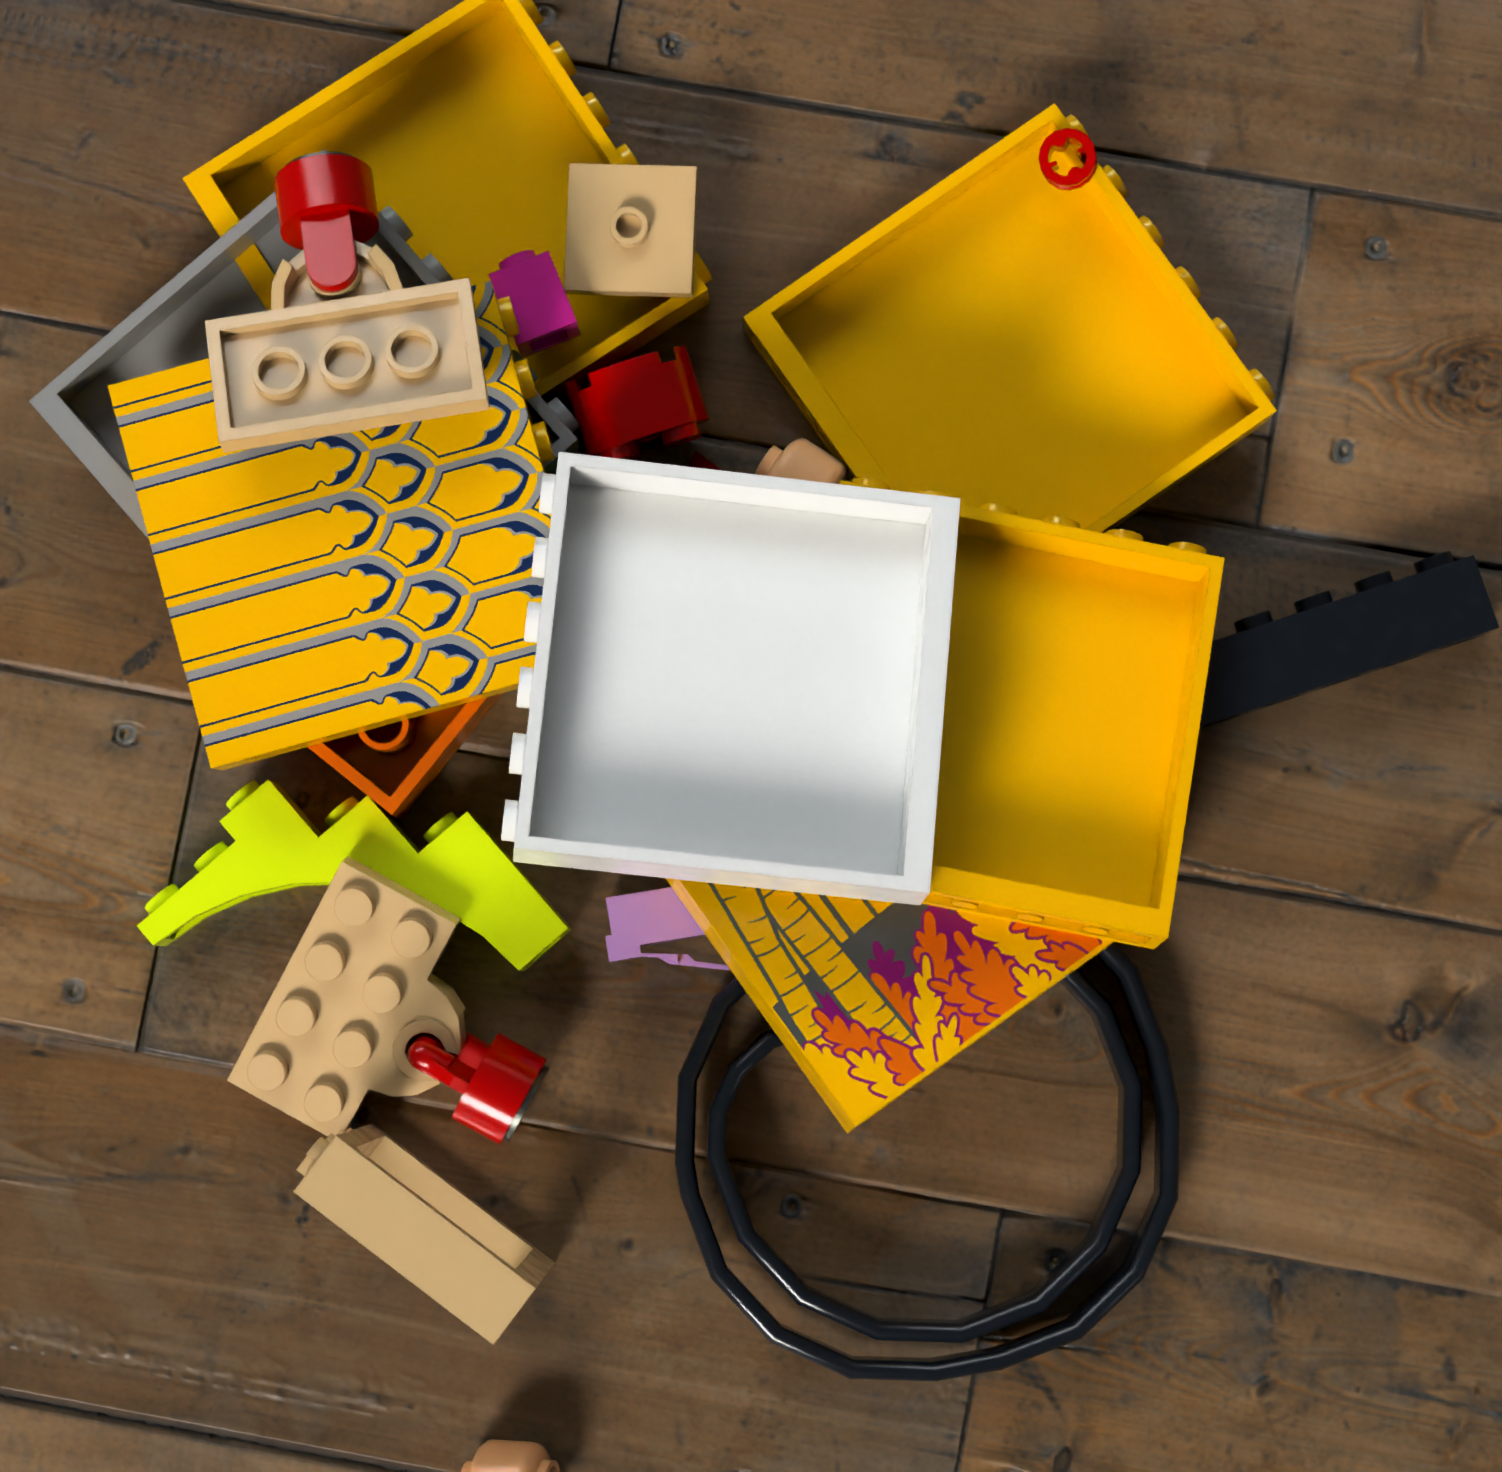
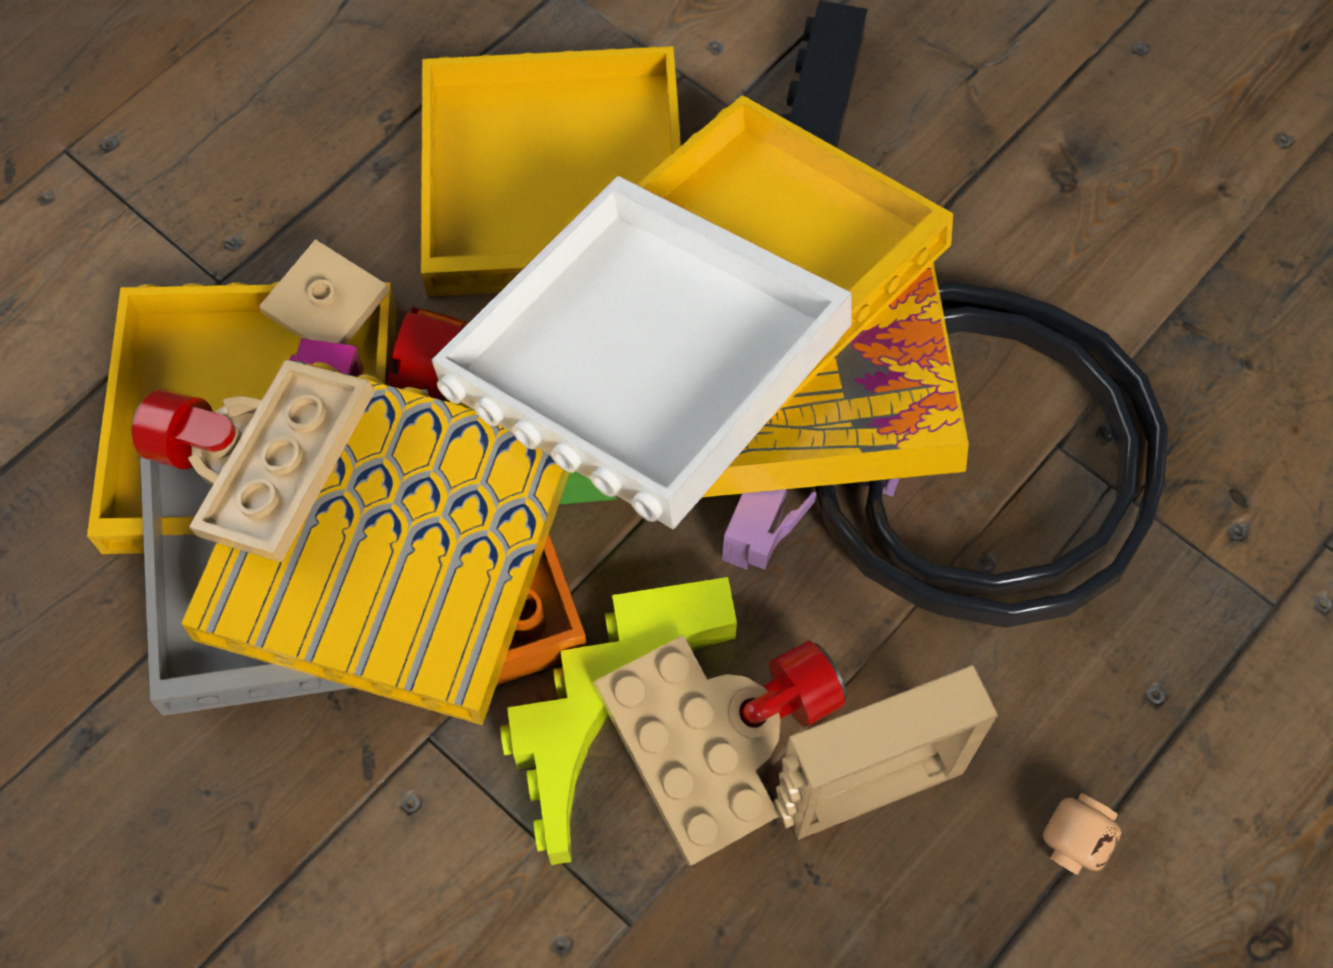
camera: 60 degrees left, 20 degrees down
(1059, 142) = (456, 77): red bush -> none

